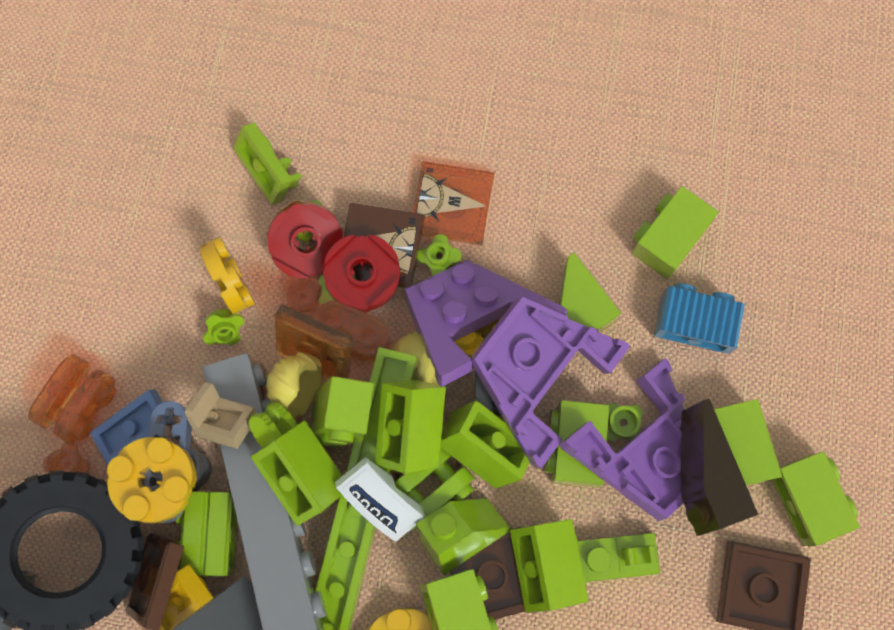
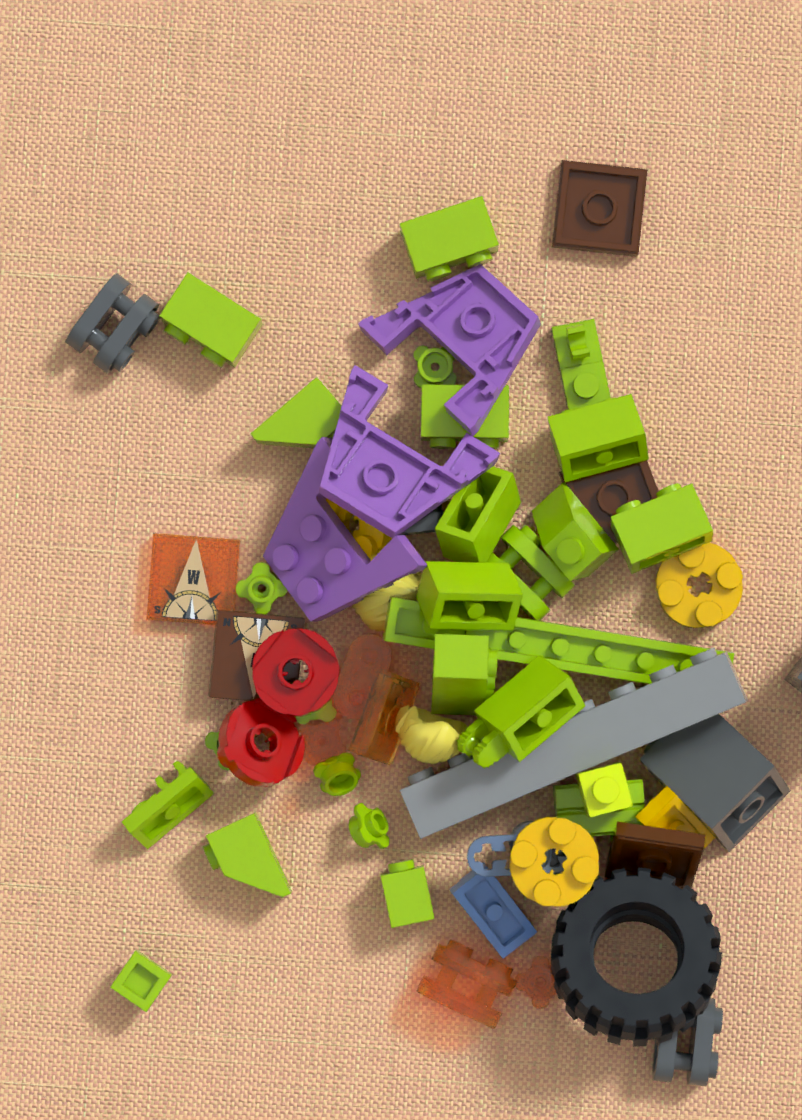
camera: 95 degrees left, 10 degrees up
(122, 129) = (141, 980): none -> lime tile
(158, 354) = (406, 894): none -> lime brick
(208, 218) = (247, 856): none -> lime slope
(214, 536) = (604, 789): none -> neon yellow brick
(217, 417) = (480, 802): tan bracket -> none
(227, 275) = (304, 832): yellow plate -> none
(268, 303) = (337, 774): none -> lime plate
(378, 499) = (550, 622): white slope -> none
(674, 153) = (138, 319): none -> dark grey brick
(699, 318) = (310, 288): dark azure brick -> none
(710, 475) = (490, 272): dark brown slope -> none
(816, 500) = (499, 157): lime brick -> none

